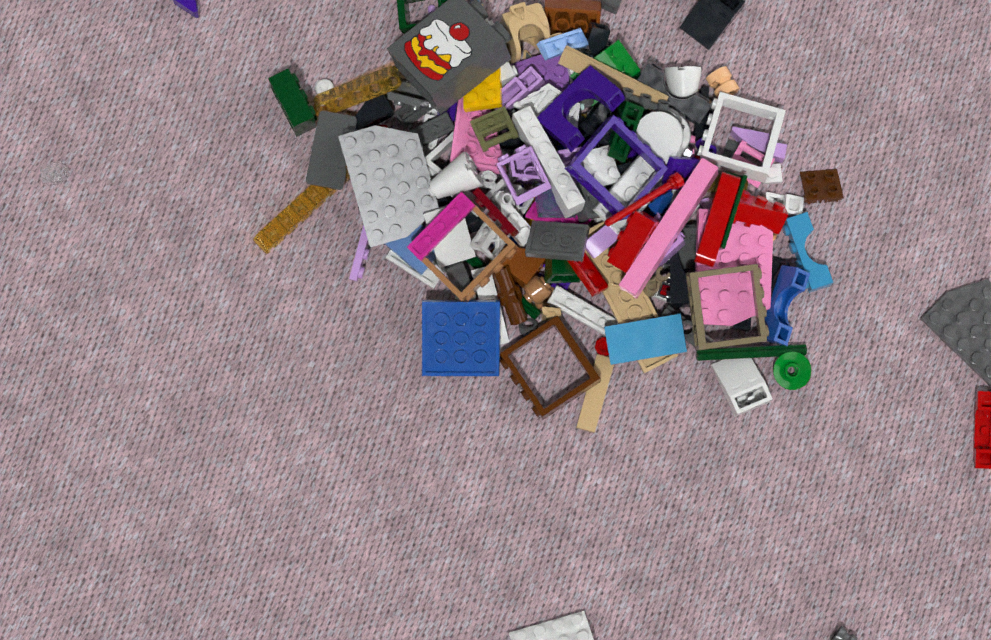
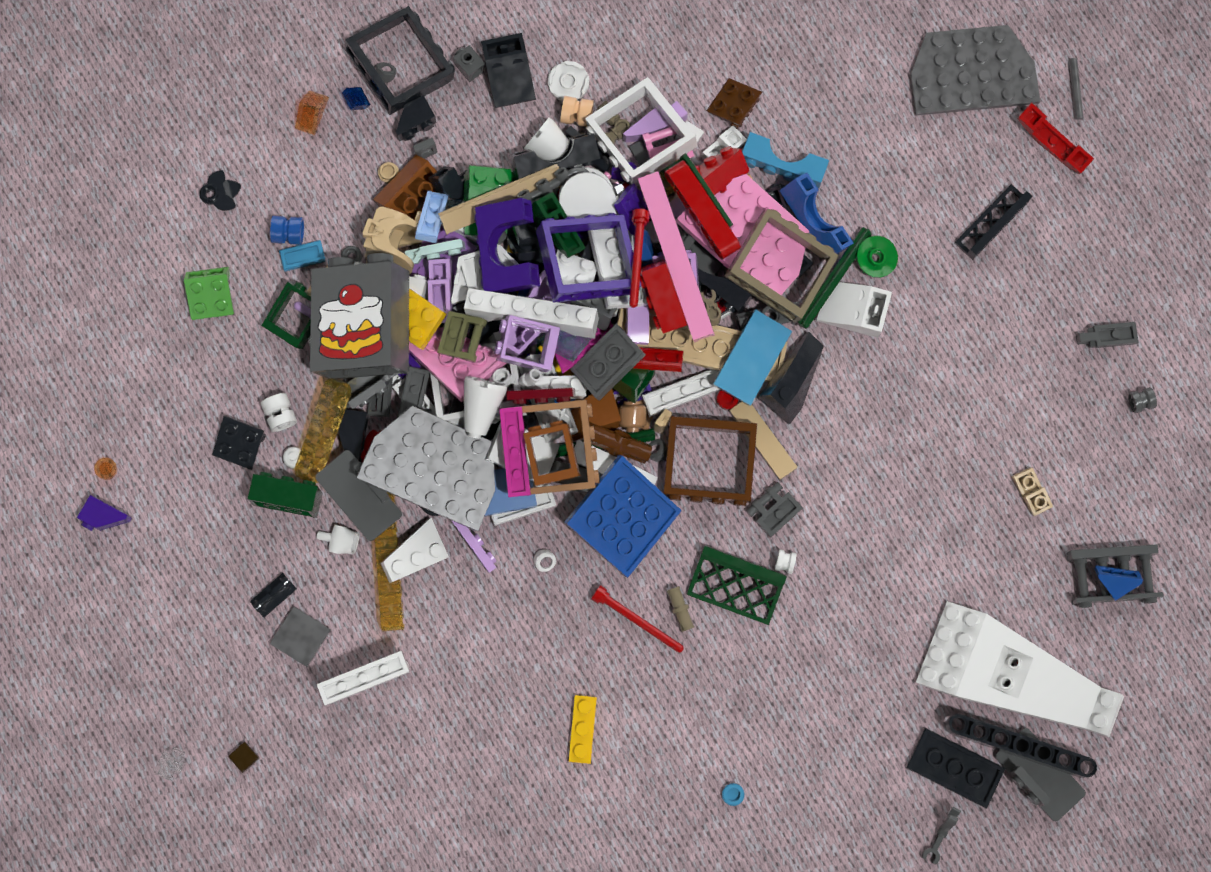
camera: 50 degrees left, 0 degrees up
(96, 217) = (243, 757): none -> dark brown tile
(206, 190) = (300, 636): none -> flat silver tile
(208, 250) = (363, 678): none -> white fence
(220, 149) = (273, 595): none -> black hinge
(293, 164) = (340, 540): none -> white piece
(293, 427) = (582, 729): none -> yellow plate
(305, 44) = (238, 442): none -> black hinge
(324, 220) = (417, 552): none -> white wing
(329, 566) = (733, 794): none -> dark azure tile
(346, 54) = (276, 405): none -> white wheel
(389, 304) = (540, 555): none -> white piece
(395, 369) = (602, 596): none -> red piece
(429, 429) = (680, 609): none -> dark tan pin
(473, 259) = (555, 476): none -> dark orange window
(493, 449) = (744, 567): none -> dark green fence
(495, 10) = (352, 250): none -> dark grey plate
(520, 475) = (785, 561): none -> white wheel
(541, 65) = (433, 251): none -> light aqua hinge
(551, 445) = (779, 514): none -> dark grey plate
(649, 382) = (792, 381): none -> black wedge
(712, 611) = (1032, 491): none -> tan slope
(737, 121) = (619, 128): none -> dark tan bar
(741, 61) = (569, 86): none -> white tile
(872, 580) = (1109, 335): none -> dark grey hinge
(887, 439) = (1000, 223): none -> black fence

